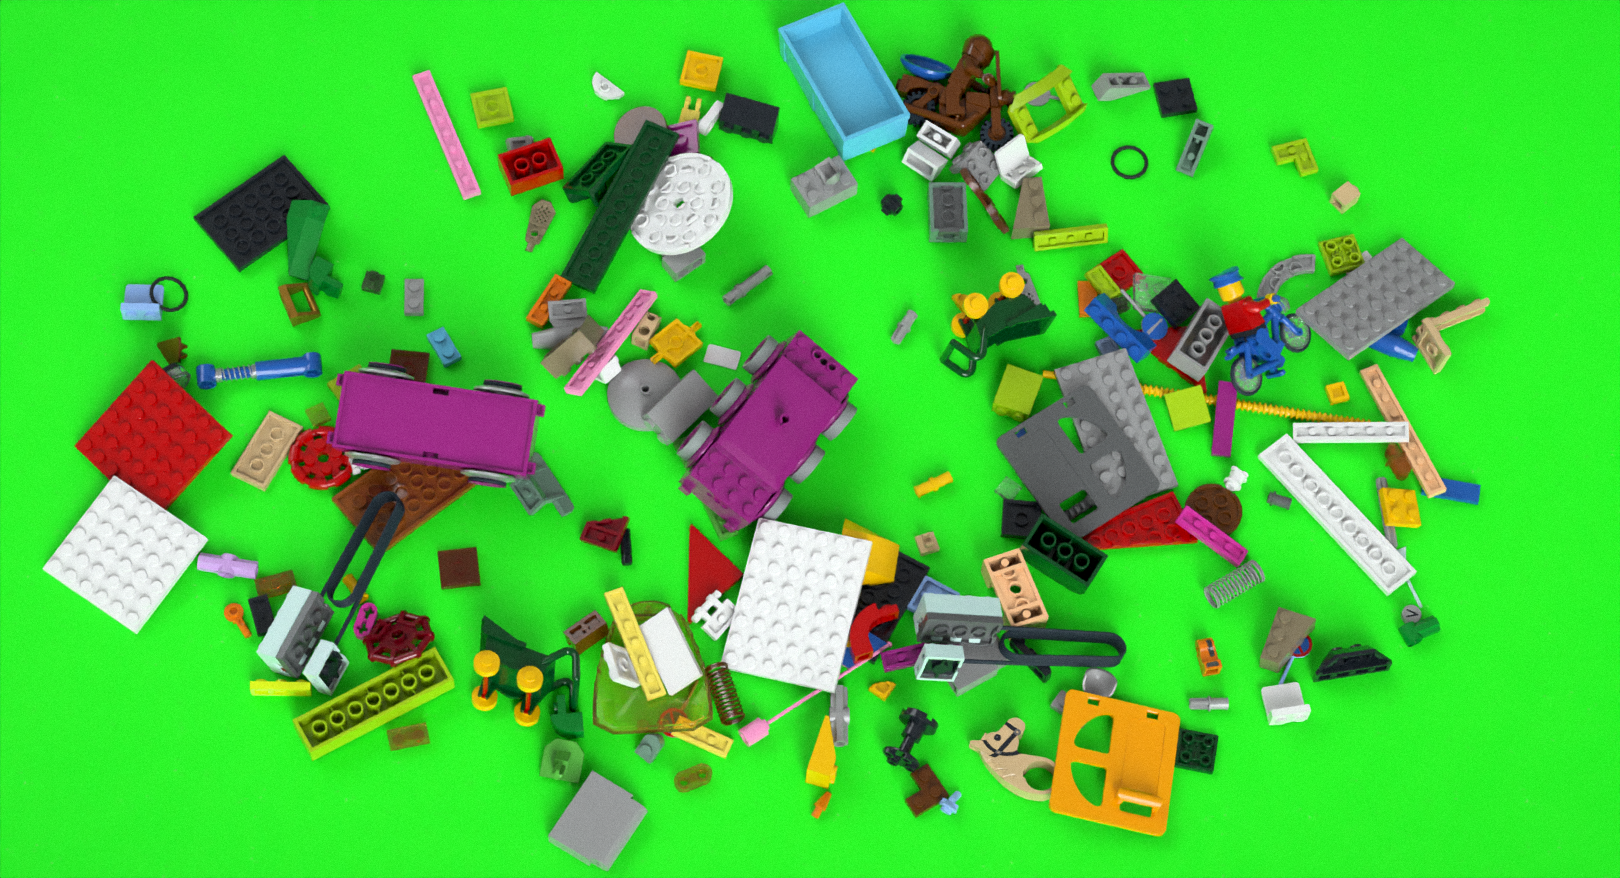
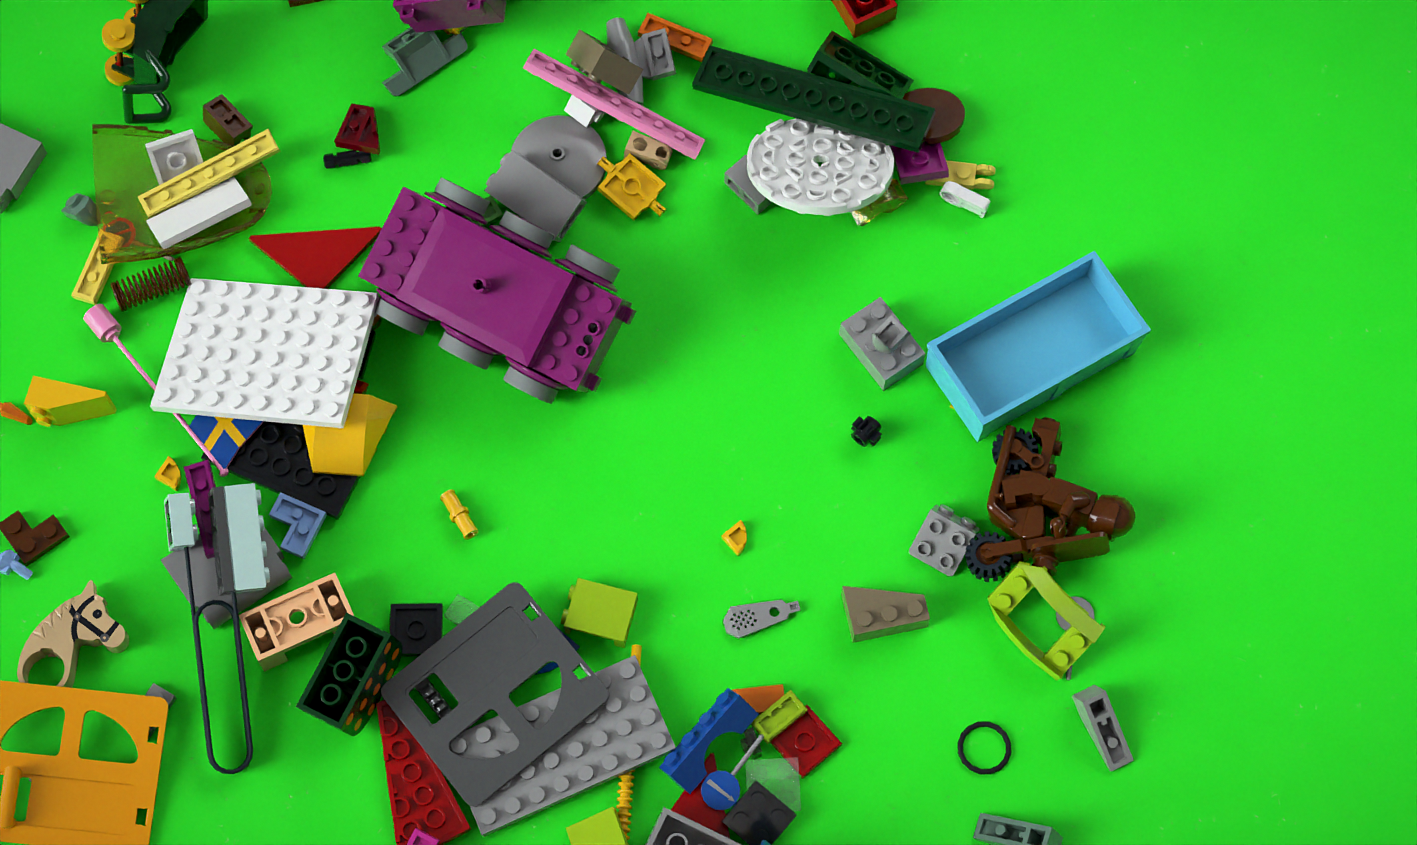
camera: 90 degrees right, 5 degrees up
(539, 227) = (782, 16): dark tan piece -> none
(562, 761) = (58, 112): bright green piece -> none
(566, 724) = (109, 109): green brick -> none
(605, 89) = (992, 71): white plate -> none
(692, 777) = (42, 262): plate -> none
(701, 71) = (1035, 181): yellow plate -> none
(719, 620) = (249, 270): white plate -> none
(722, 356) = (623, 246): white sticker -> none
(741, 289) = (725, 264): light grey pin -> none
(749, 118) = (965, 242): black slope -> none
(839, 716) = (127, 422): light grey piece -> none
(866, 620) = (232, 430): red arch -> none
(904, 327) = (686, 461): light grey axle -> none
(915, 727) = (106, 510): piece -> none
(924, 160) = (942, 470): white brick -> none
(926, 67) = (1083, 454): blue dish -> none
(926, 543) = (375, 514): tan tile -> none
(938, 139) = (972, 482): white brick -> none
(947, 212) = (862, 501): piece -> none
(985, 200) = (889, 552): reddish brown tile -> none
(1007, 319) = (695, 582): dark green piece -> none
(1015, 162) = (952, 587): white bracket -> none
(1019, 647) = (215, 652): black hinge -> none
(1070, 237) = (848, 669): lime plate -> none
(1099, 682) = (183, 740): light grey helmet -> none
(1106, 345) = (681, 726): sand blue plate -> none
(1175, 97) = (1098, 806): black plate -> none

